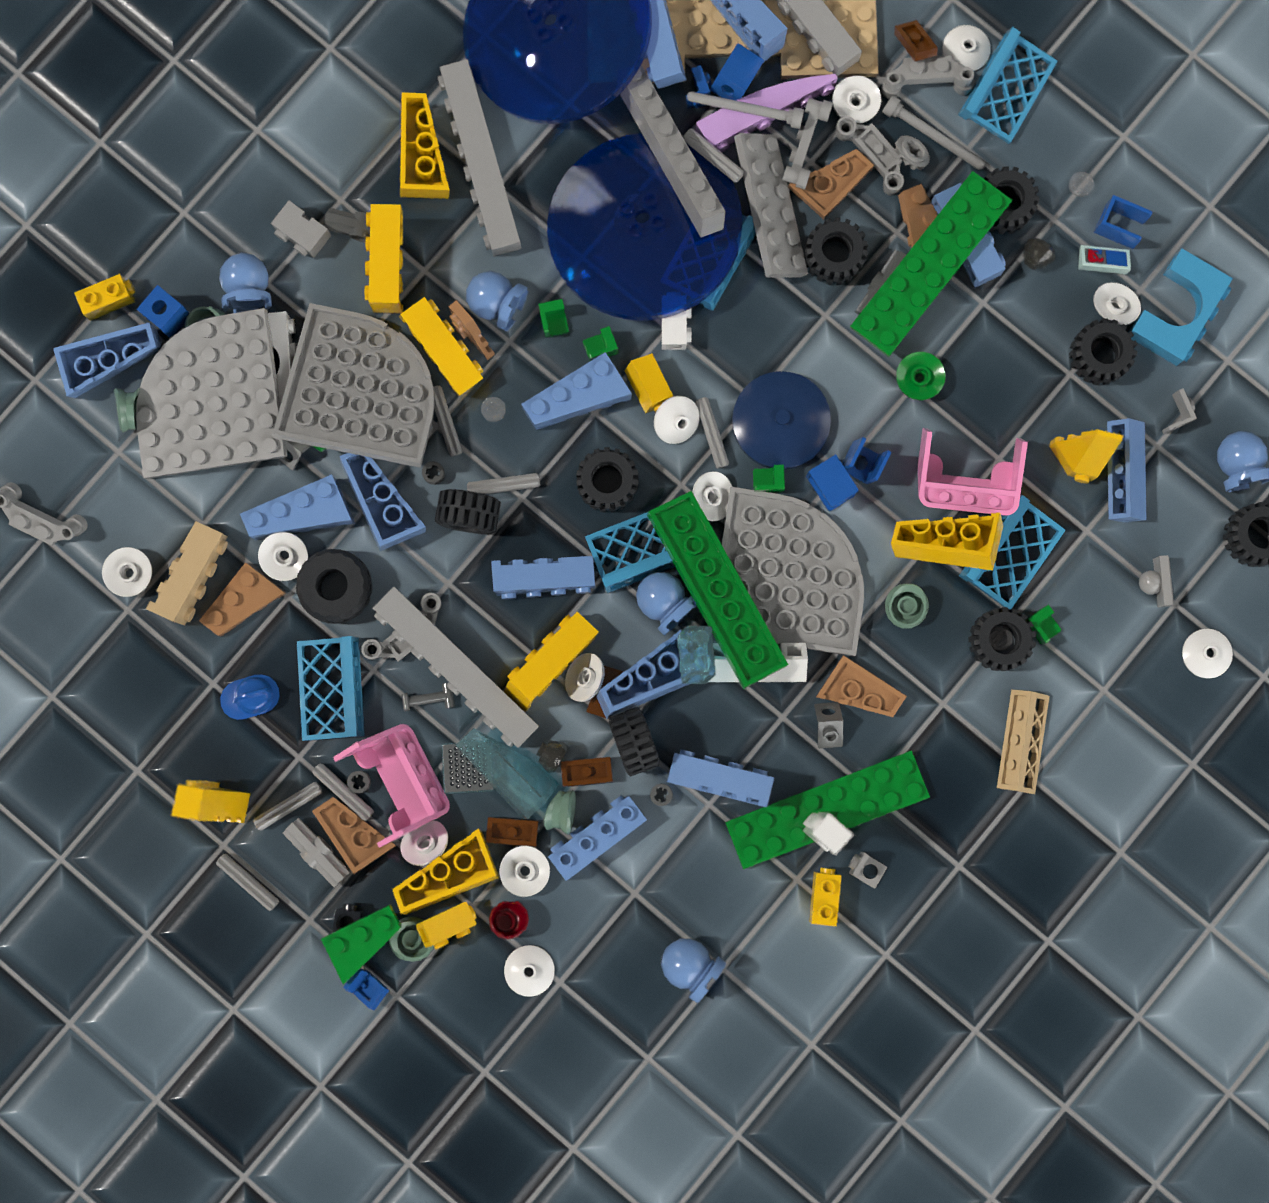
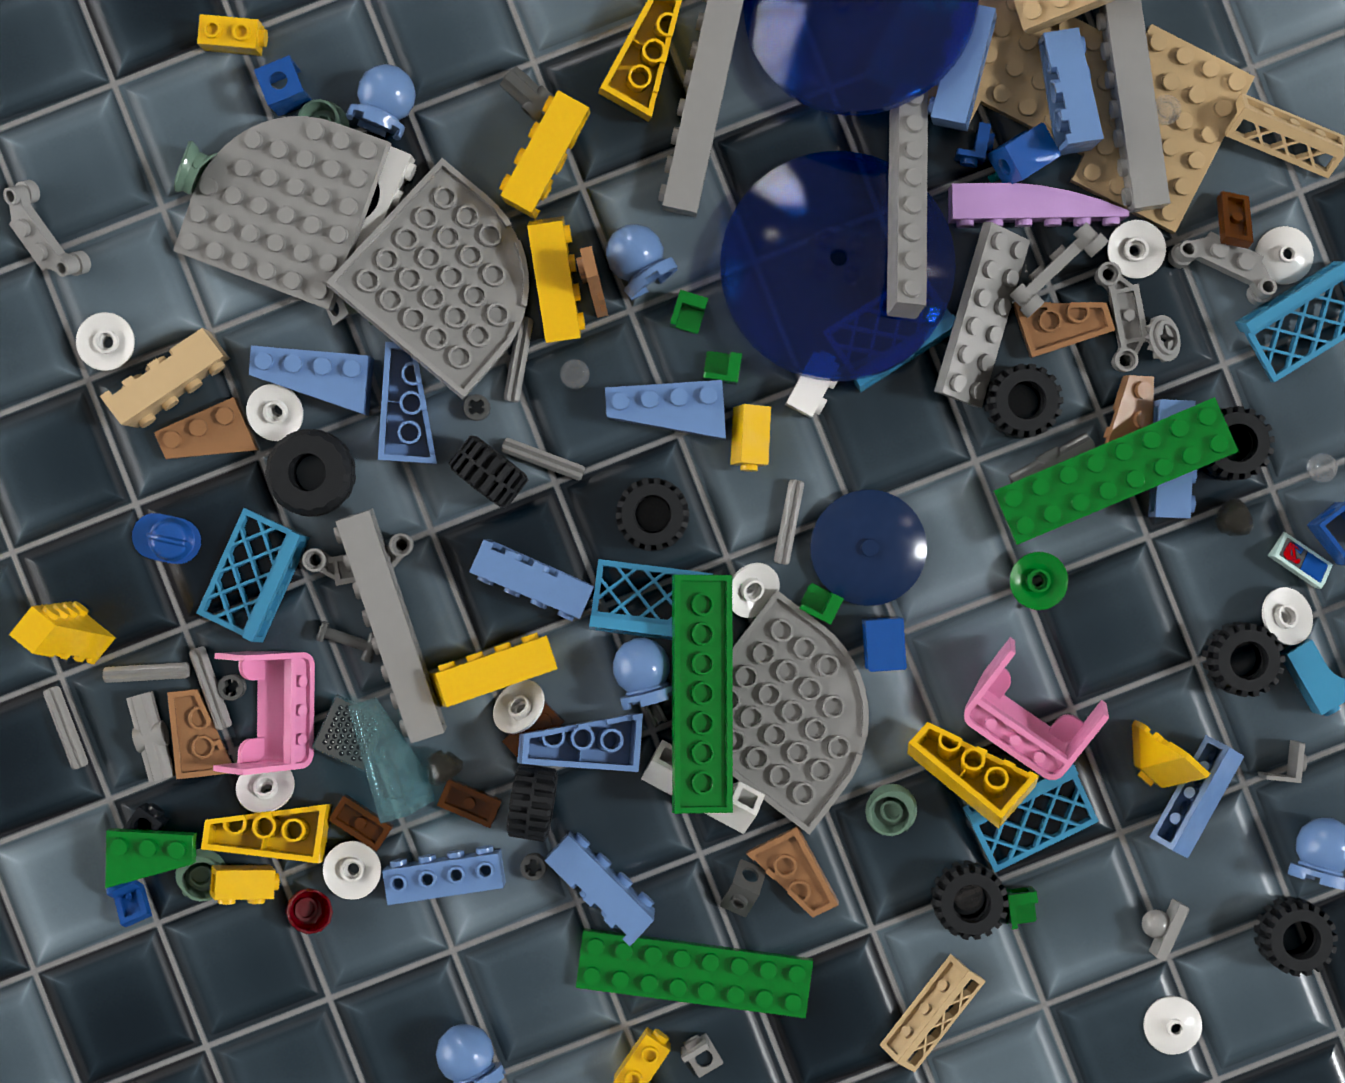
camera: 20 degrees right, 5 degrees up
(103, 357) = (188, 99): medium blue wedge -> none
(294, 226) = (468, 64): light grey brick -> none
(531, 957) = (313, 959): white dish -> none
(561, 812) = (421, 832): sand green piece -> none
(670, 414) = (757, 481): white dish -> none
(696, 655) = (643, 751): clear light blue brick -> none
(713, 155) = (950, 230): light grey axle -> none
(792, 117) = (1056, 233): light grey piece -> none
(826, 831) = (675, 1008): white arch -> none
(875, 462) = (939, 649): blue piece -> none
(895, 109) = (1171, 280): light grey piece -> none

